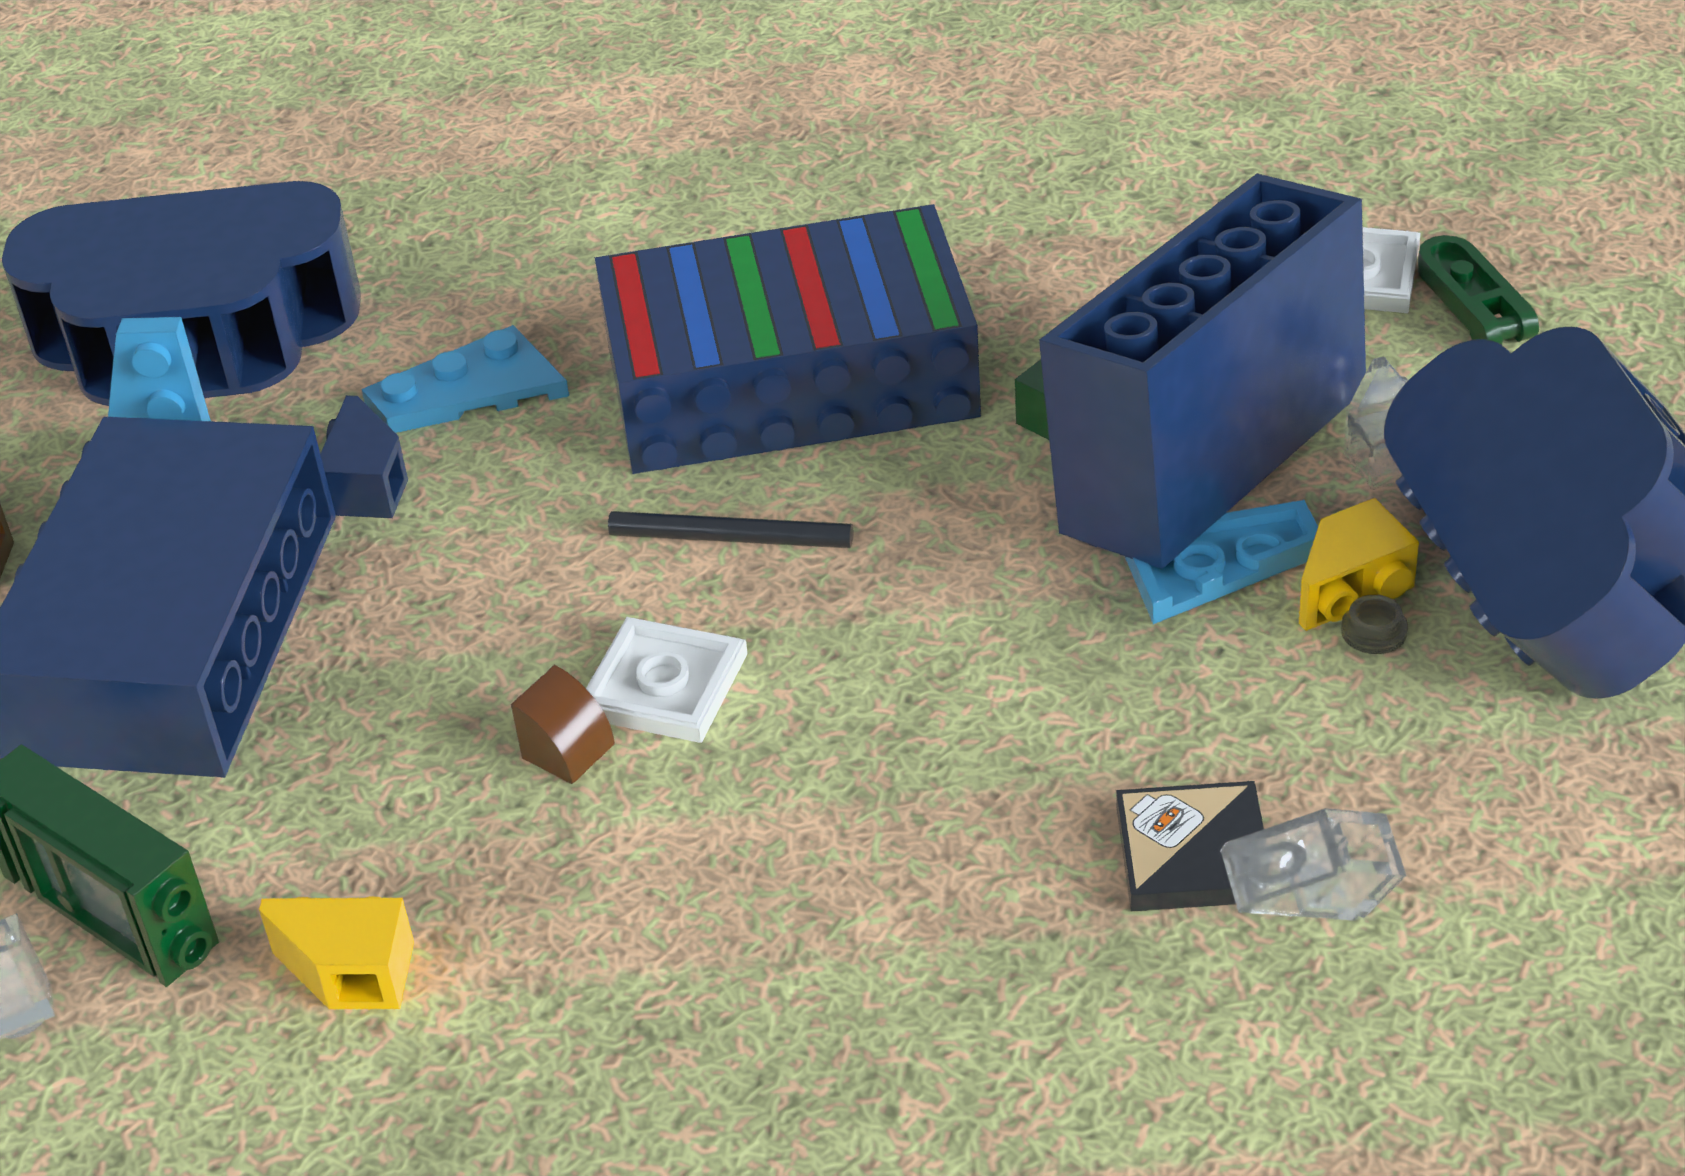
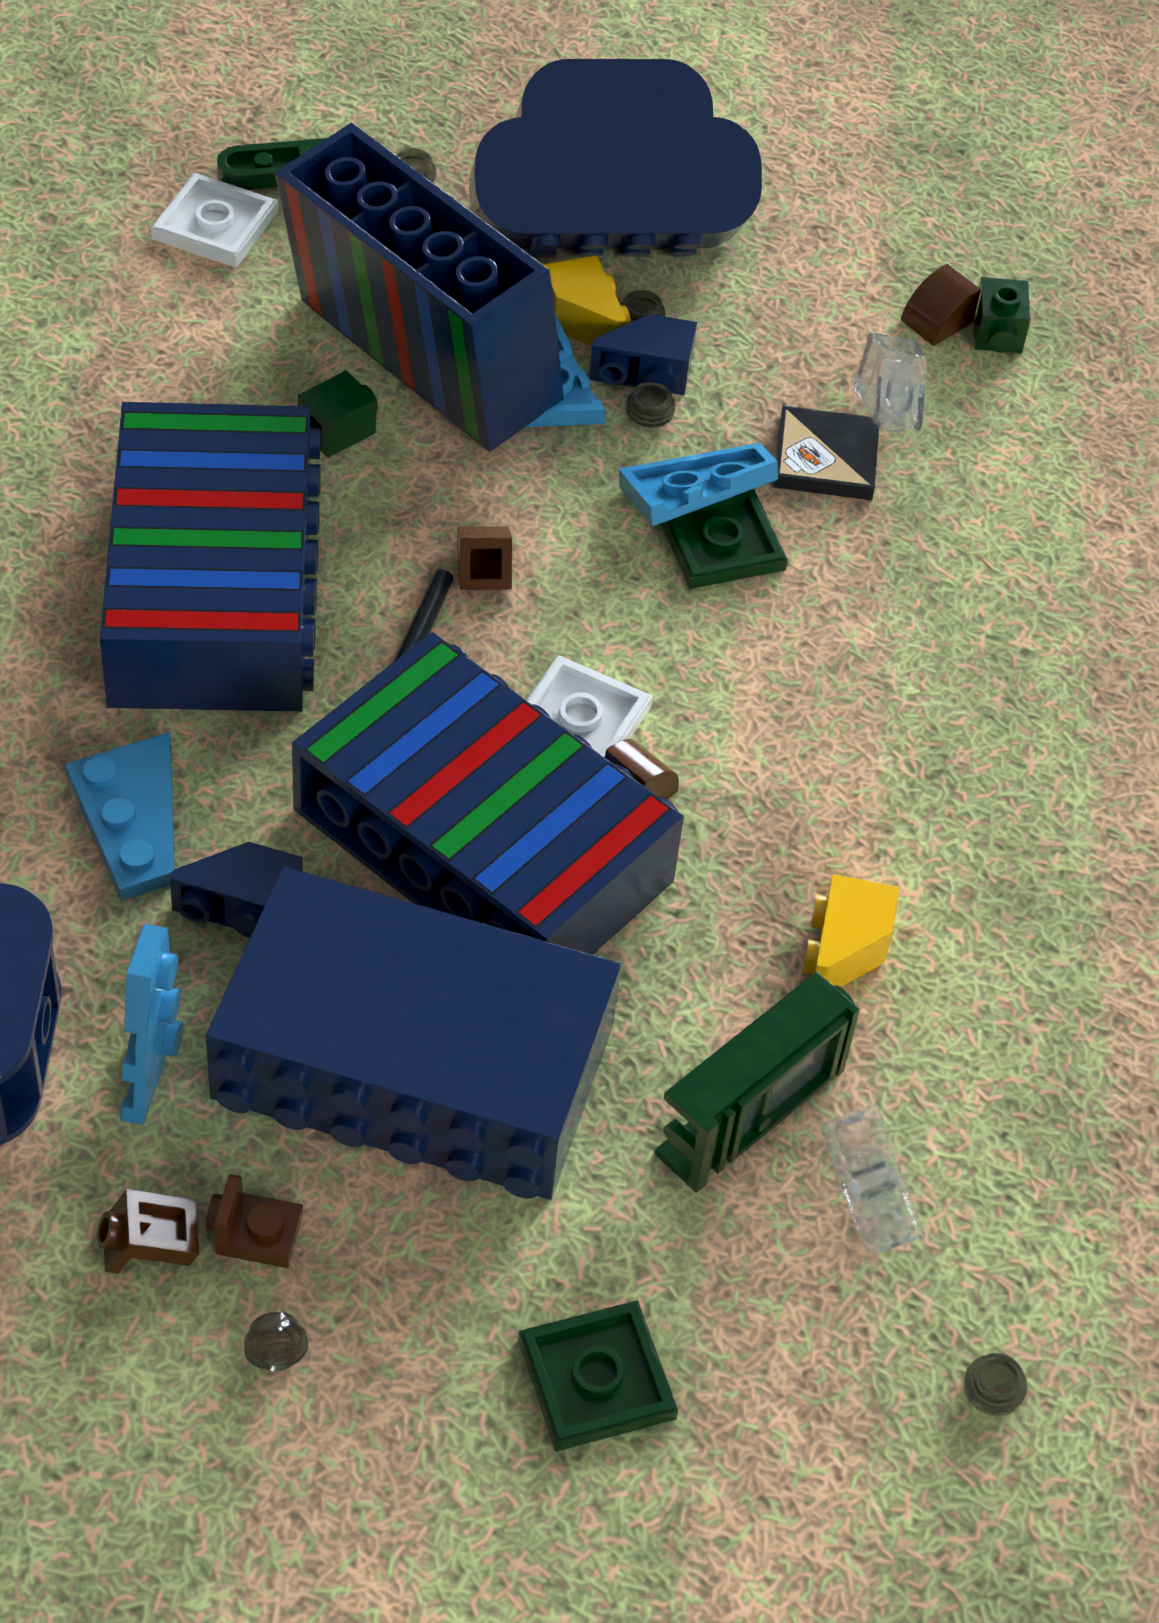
camera: 90 degrees left, 10 degrees up
(452, 596) = (484, 803): none -> dark blue brick
(880, 552) = (484, 558): none -> reddish brown brick
(996, 763) = (725, 542): none -> dark green tile
(1064, 706) = (696, 481): none -> dark azure wing
(1202, 658) = (650, 405): none -> clear smoke plate
(1287, 636) = (645, 351): none -> dark blue slope
(1550, 931) = (941, 305): none -> reddish brown brick
(1557, 999) = (1002, 315): none -> dark green brick

